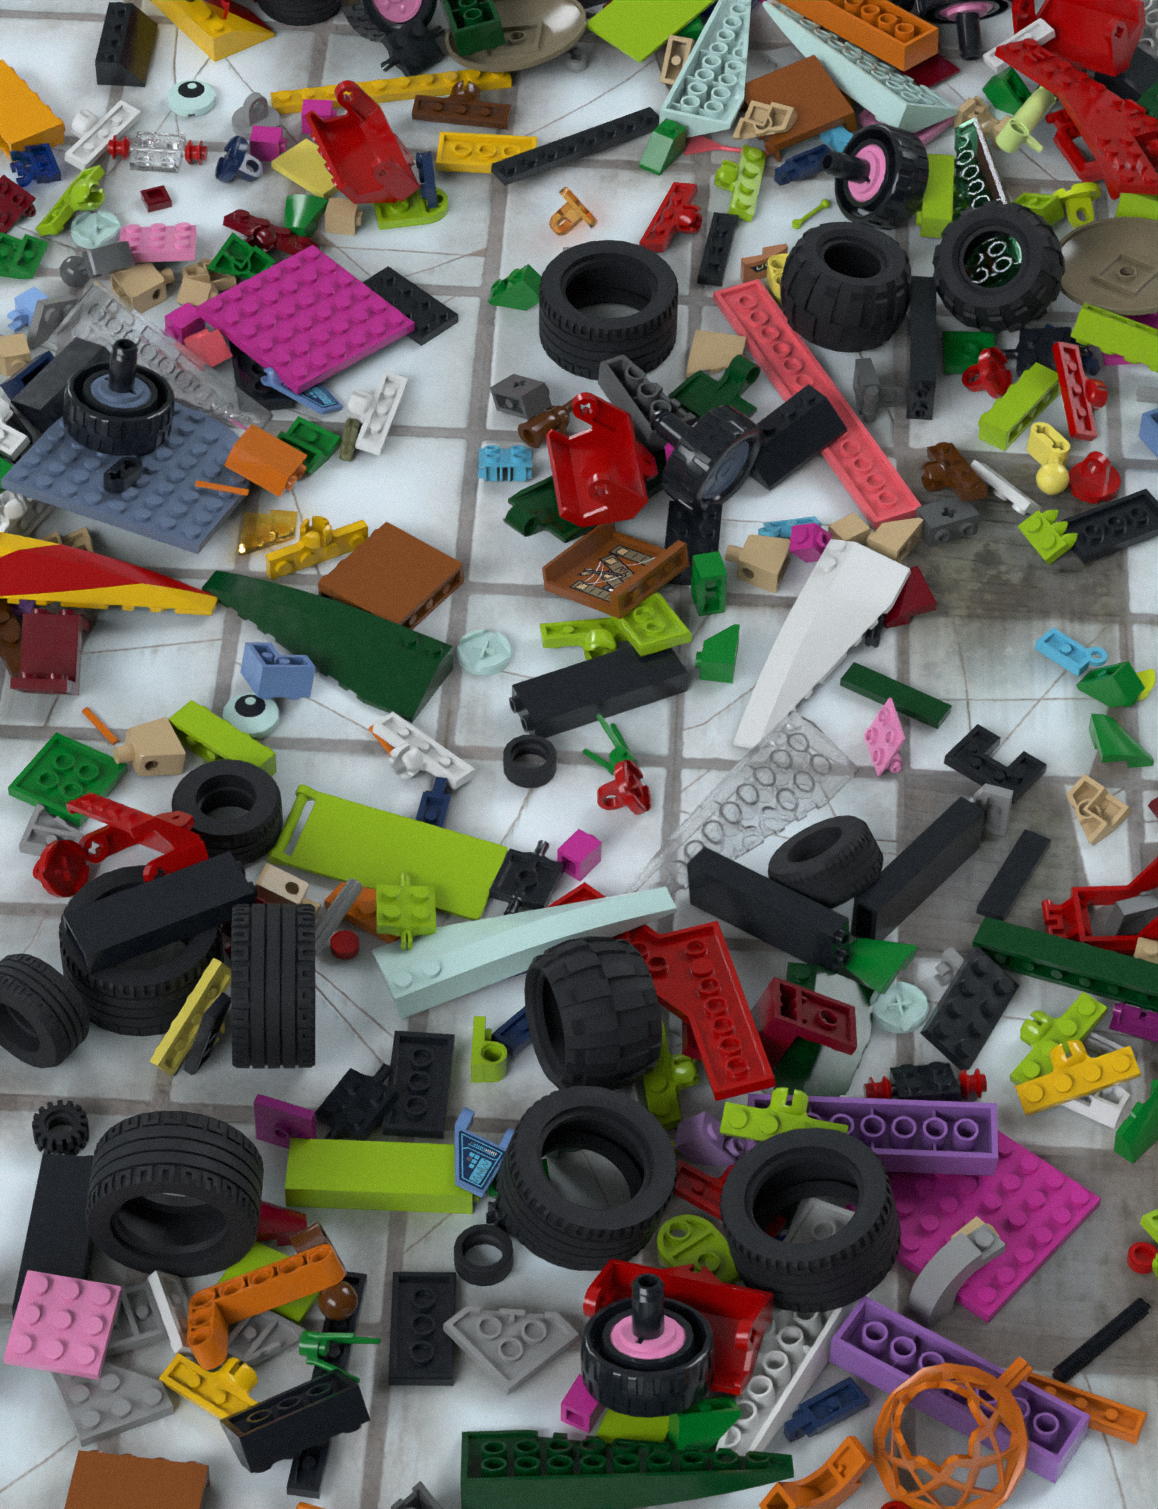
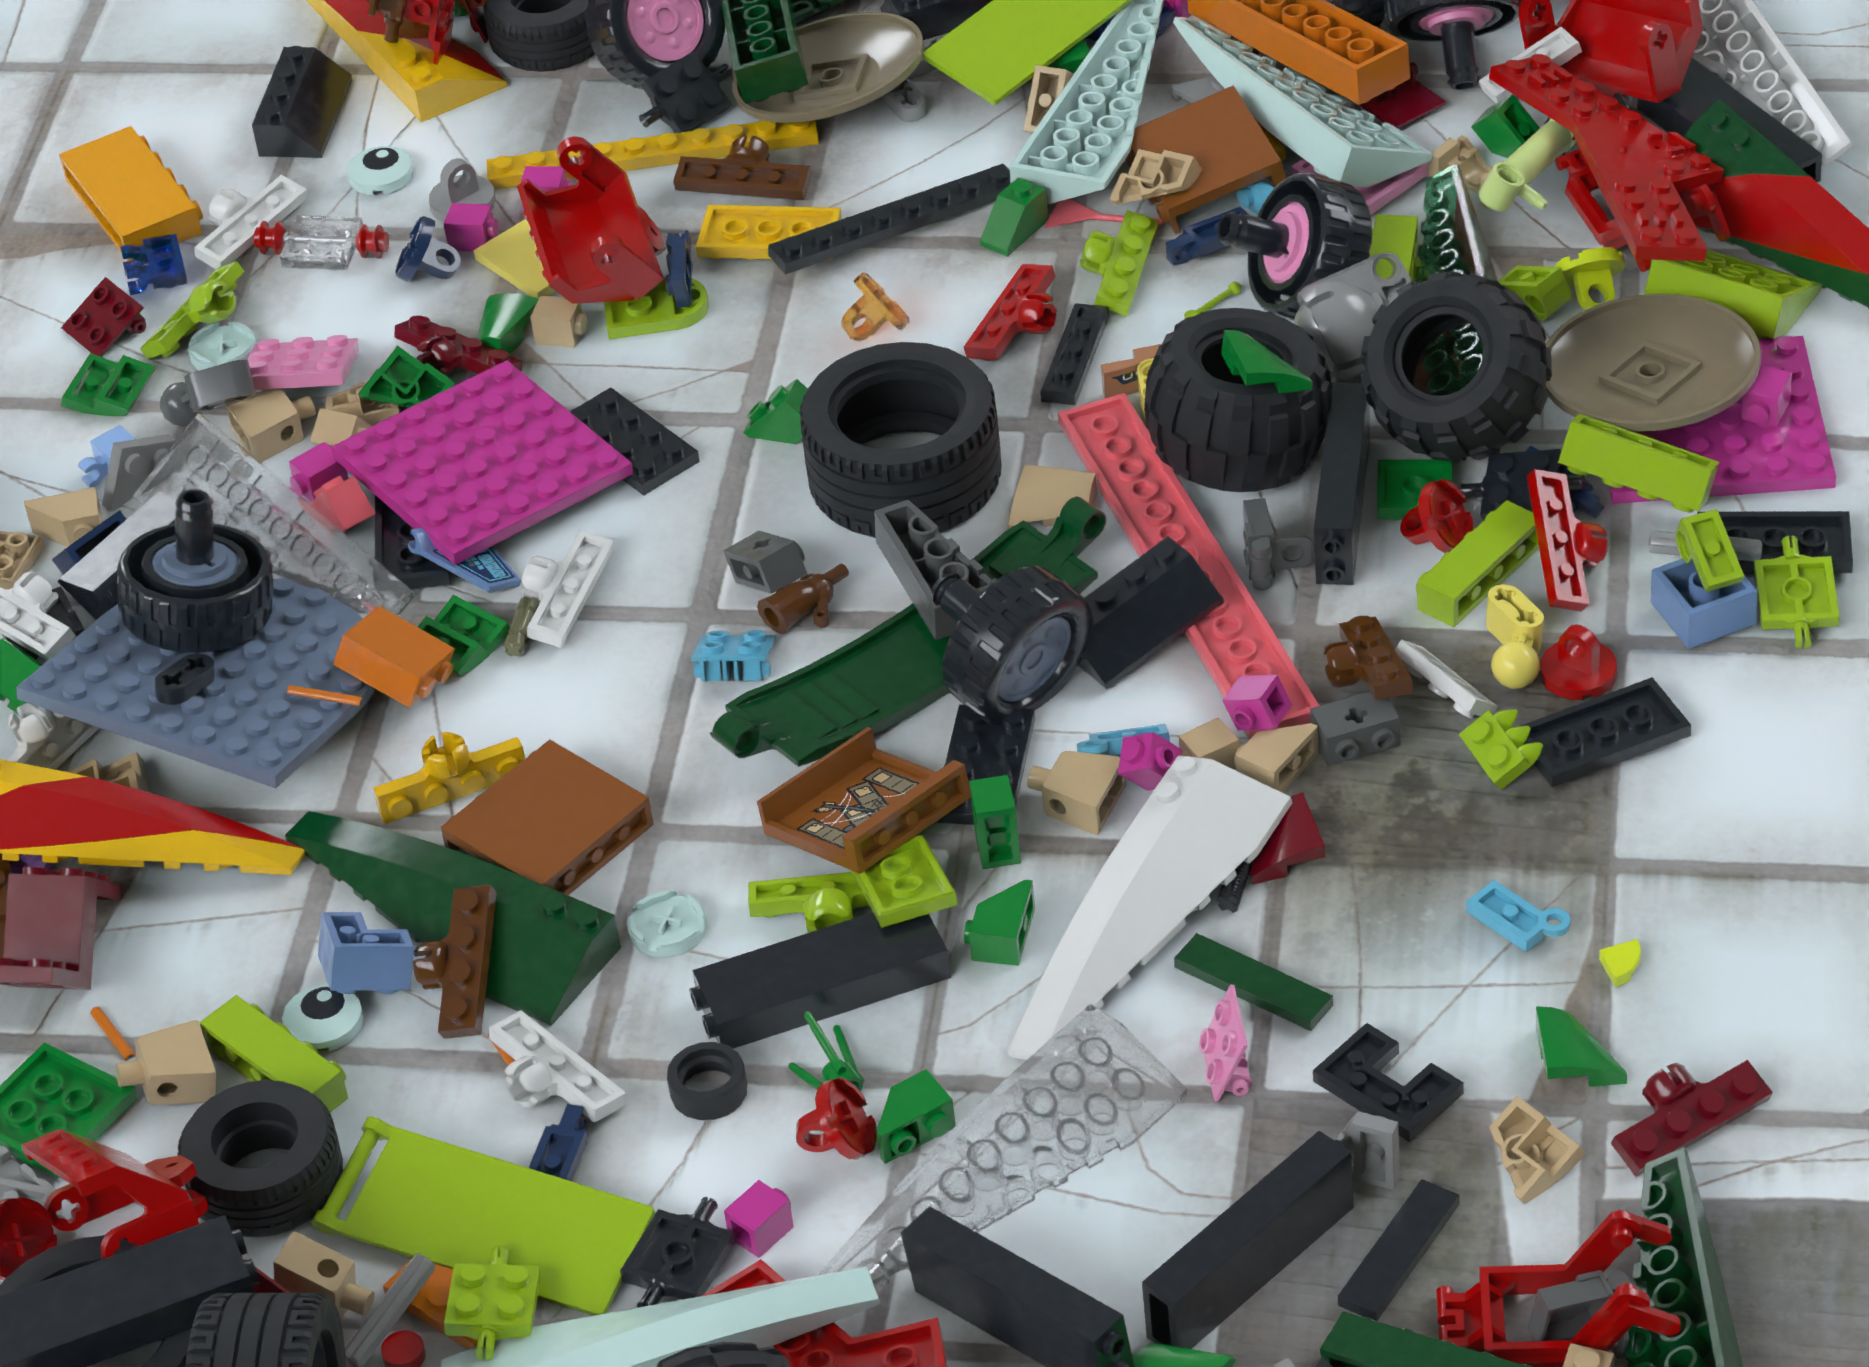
camera: 10 degrees right, 5 degrees down
(156, 198) = (310, 304): dark red tile -> none
(266, 530) = (384, 754): clear yellow slope -> none
(346, 678) = (460, 962): none -> reddish brown plate
(602, 469) = (862, 664): red piece -> none
(677, 784) = (914, 1115): none -> green slope
(828, 861) = (1110, 1229): black tyre -> none
(867, 263) = (1259, 365): none -> green slope
(881, 502) = (1257, 702): none -> dark pink brick
(919, 221) = (1342, 308): none -> light grey piece
(1112, 685) = (1575, 964): green slope -> none

